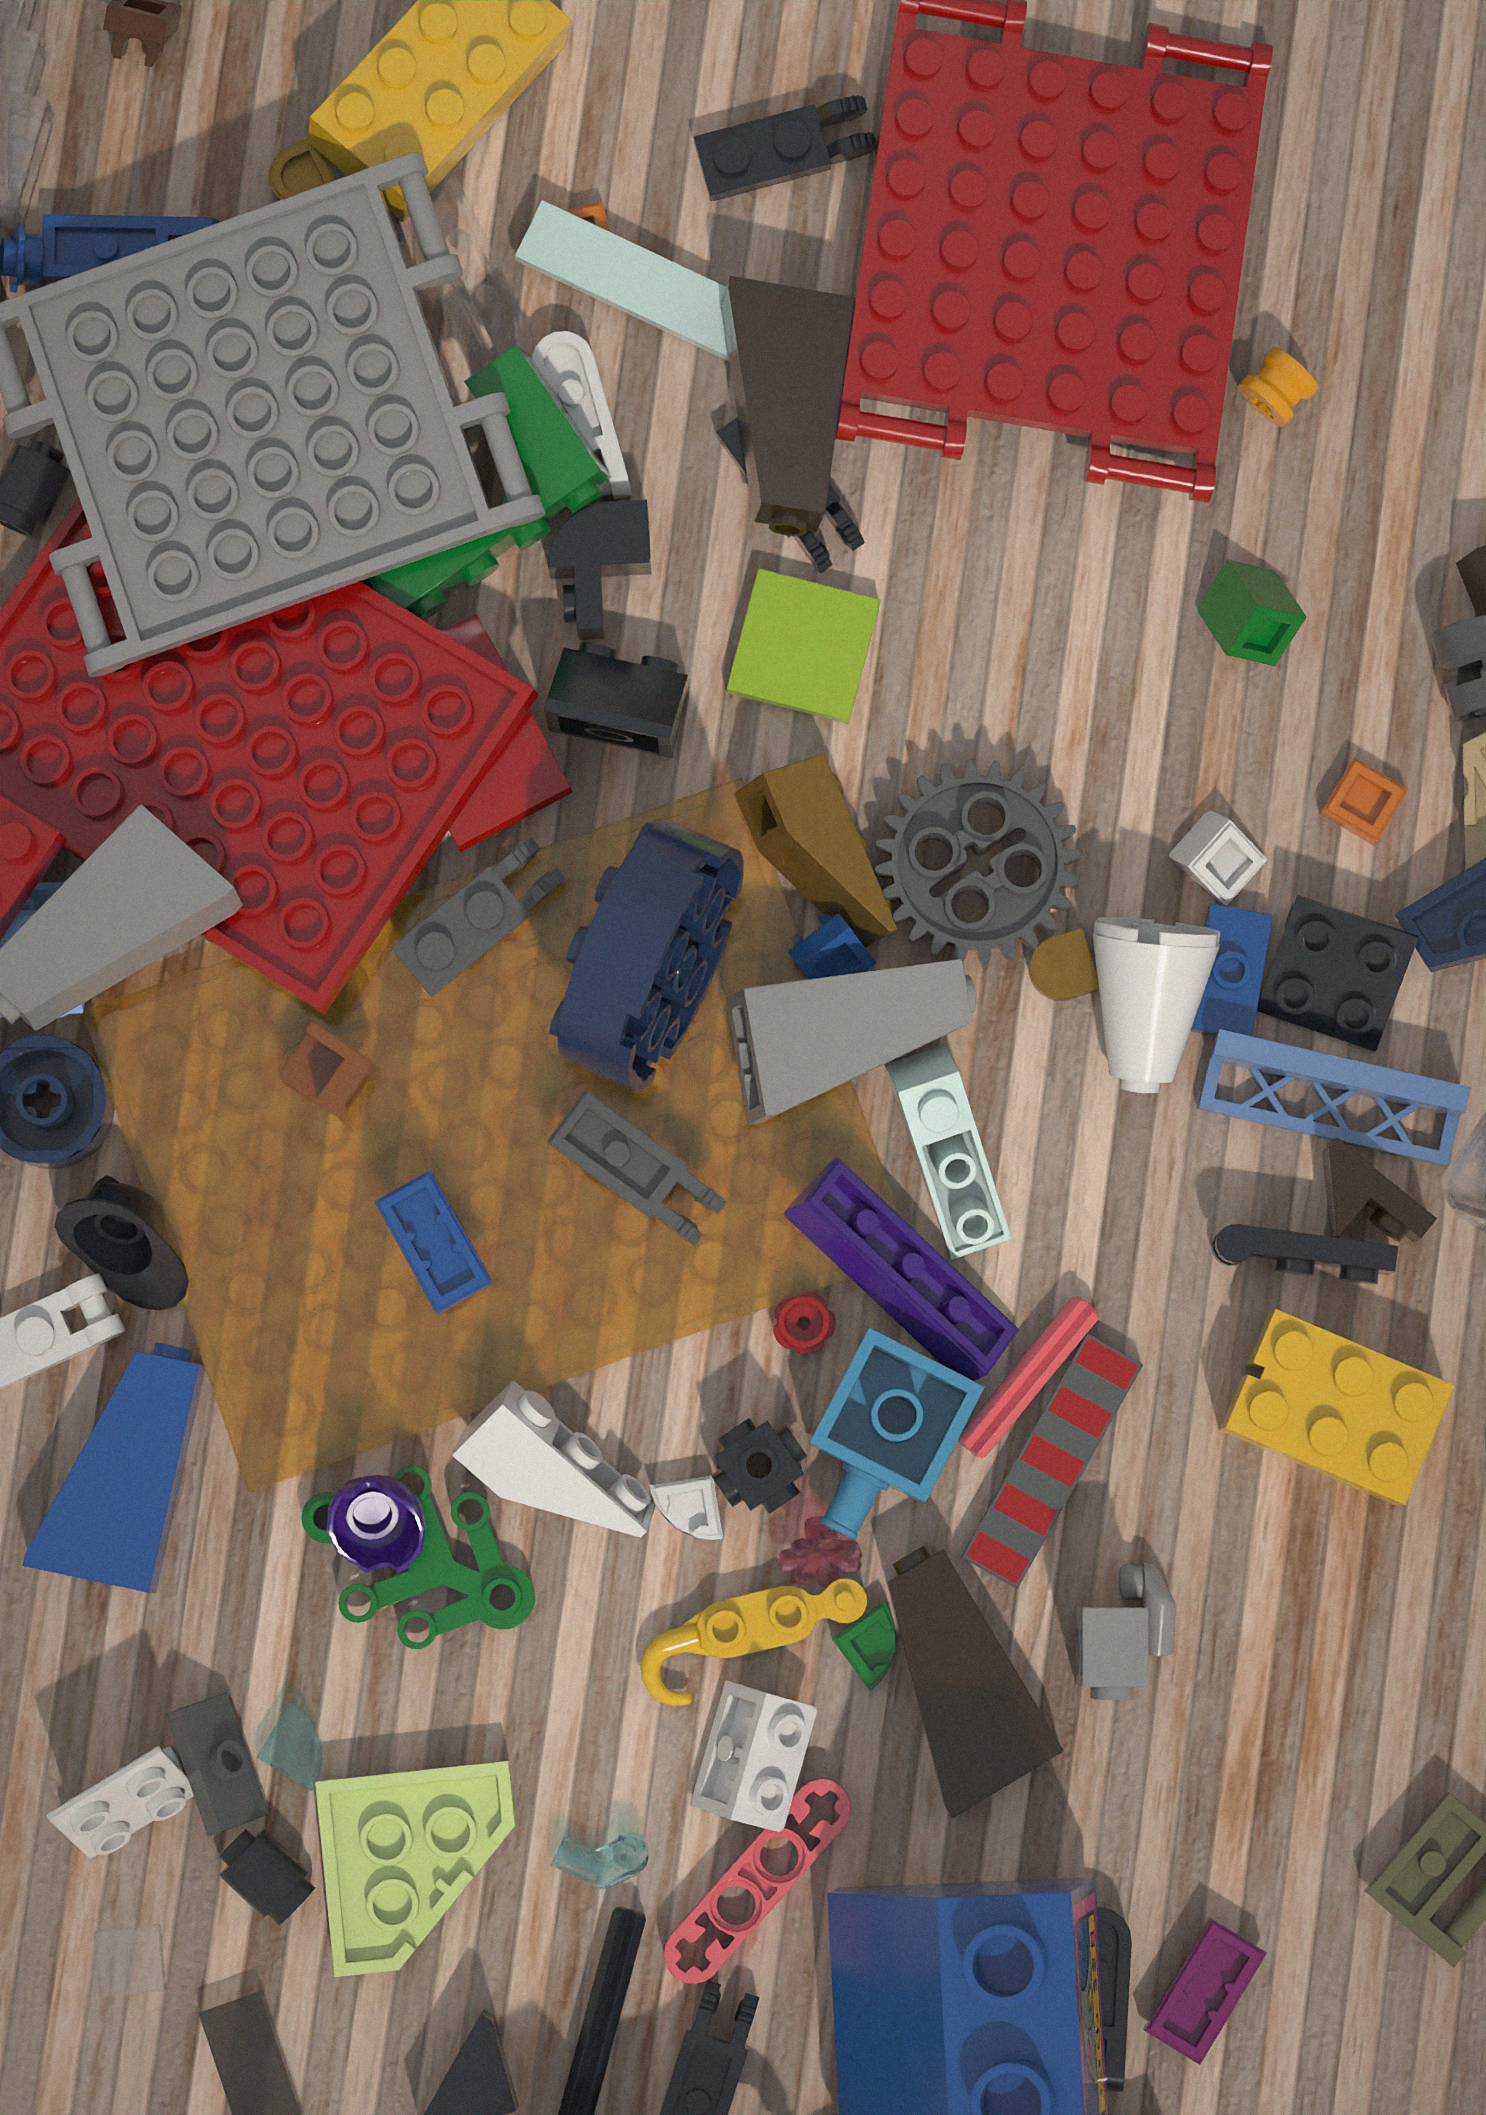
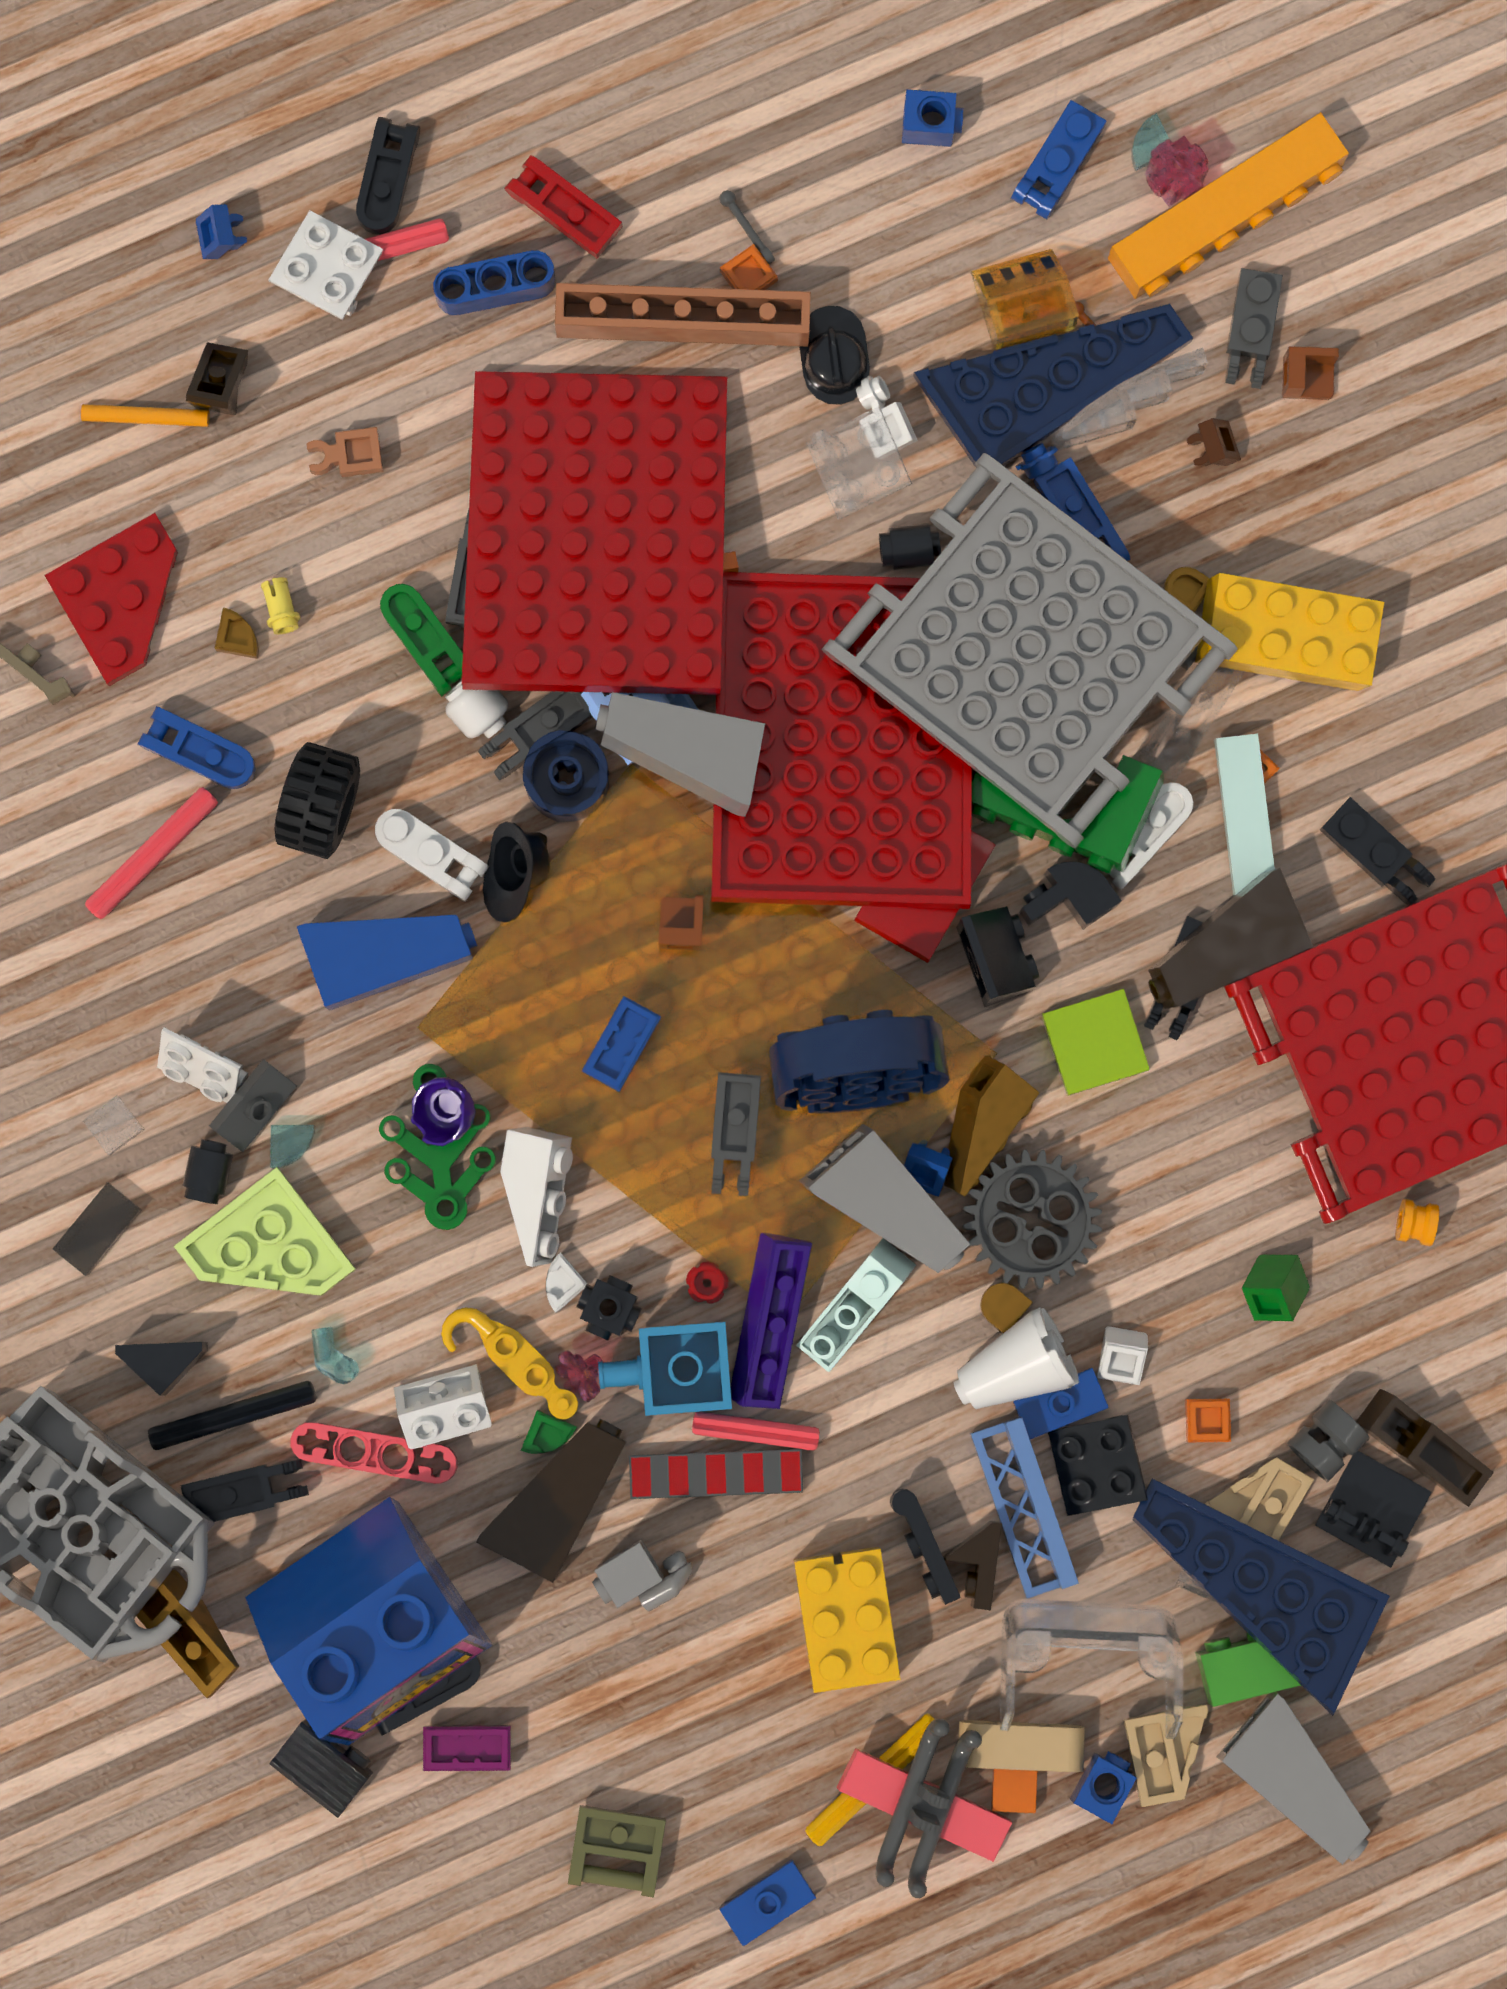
camera: 50 degrees right, 0 degrees up
(472, 921) = (817, 952): dark grey hinge -> none

